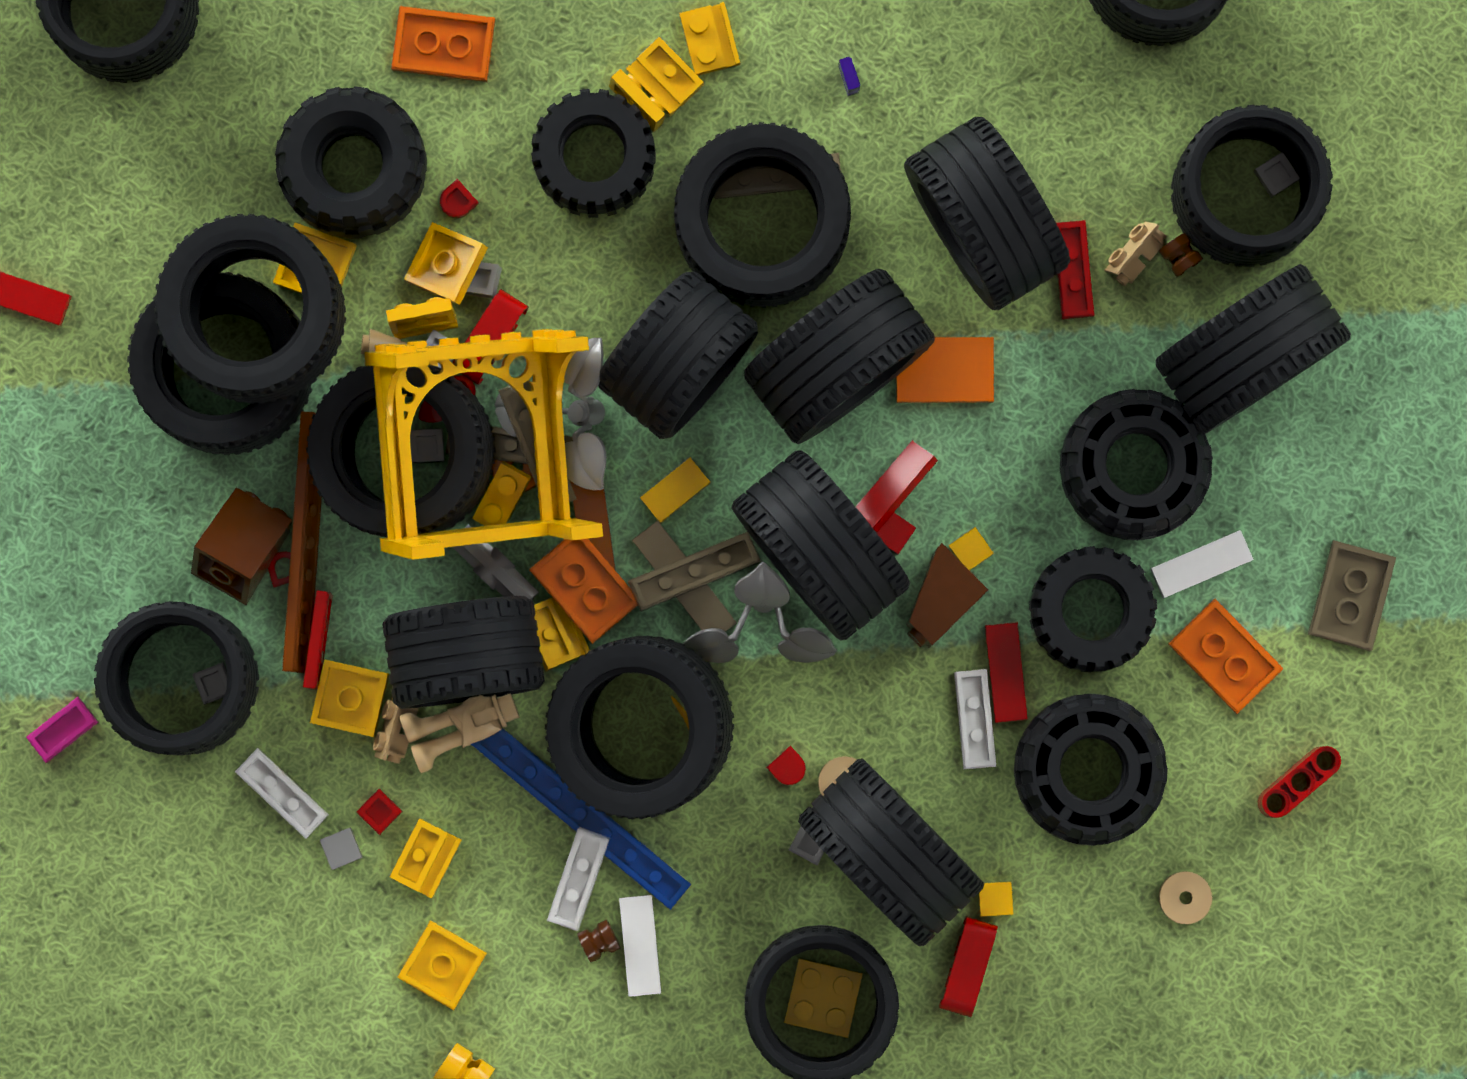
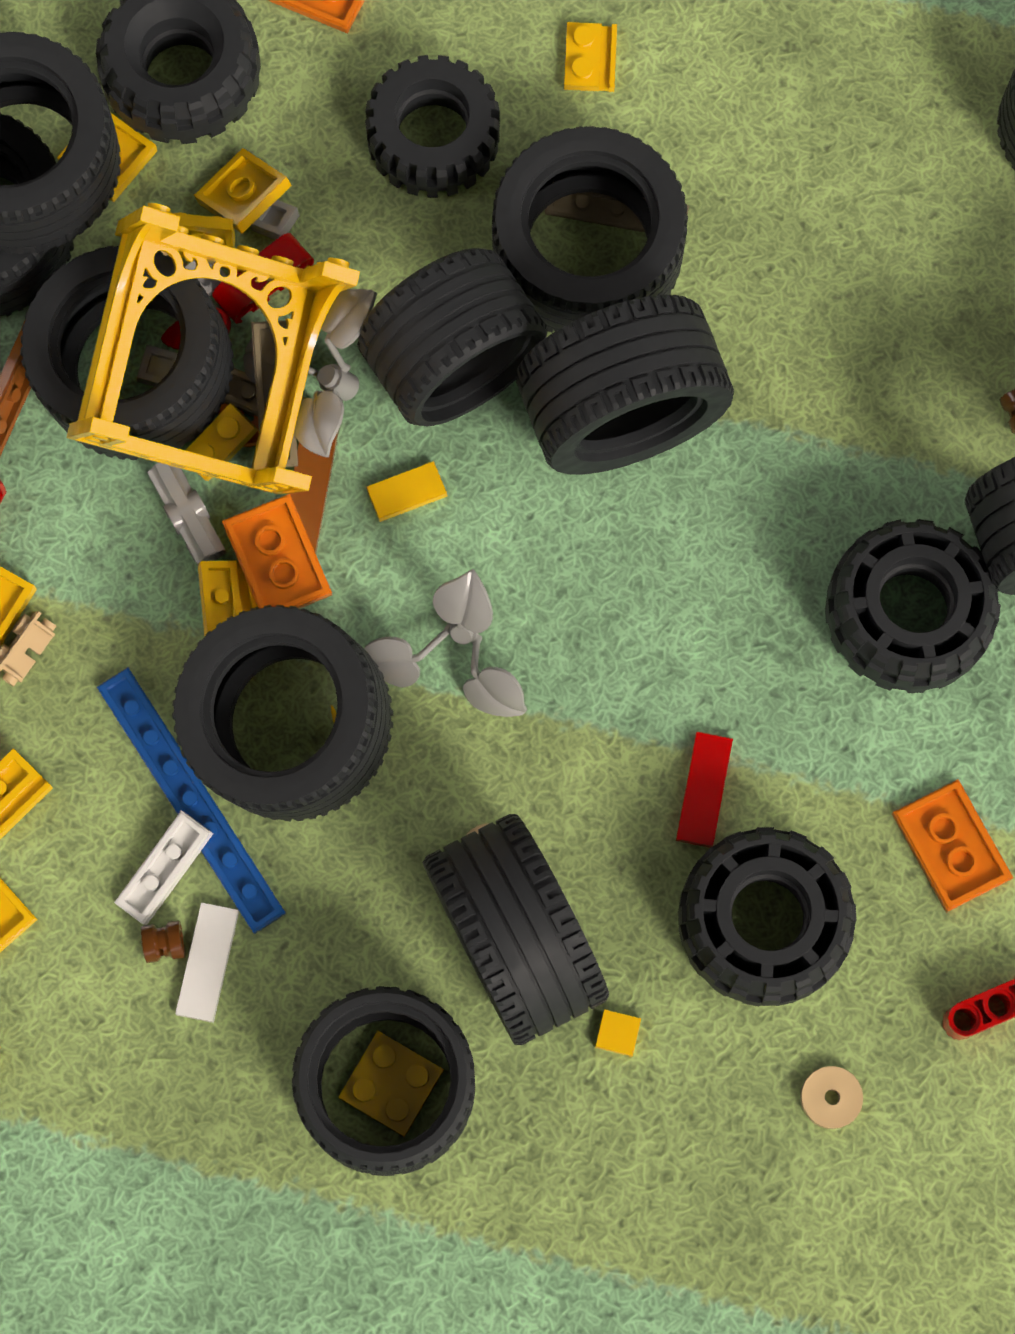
camera: 10 degrees right, 10 degrees down
(457, 200) = (276, 137): red tile -> none
(463, 651) = (118, 573): black tyre -> none
(475, 720) = (108, 660): tan piece -> none
(630, 88) = (508, 101): yellow plate -> none
(665, 76) = (532, 78): yellow plate -> none
(694, 571) = (391, 577): dark tan tile -> none
(699, 603) = (383, 582): dark tan tile -> none
(788, 767) = (433, 818): red tile -> none
(806, 847) = (428, 910): light grey tile -> none
(821, 544) = (544, 574): black tyre -> none
(849, 76) = (724, 131): dark purple tile -> none
(895, 485) = (641, 556): red tile -> none
(896, 533) = (627, 604): red tile -> none
(943, 597) = (659, 684): reddish brown slope -> none
(950, 373) = (738, 457): orange tile -> none
(968, 967) = (563, 1098): red beam -> none
(971, 549) = (705, 647): yellow tile -> none
(975, 719) = (655, 830): white tile -> none
(987, 212) = (829, 287): black tyre -> none
(1075, 281) = (902, 393): red tile -> none
(1133, 590) = (841, 703): black tyre -> none
(1144, 241) = (961, 399): tan hinge -> none
(1201, 564) = (953, 739): white tile -> none

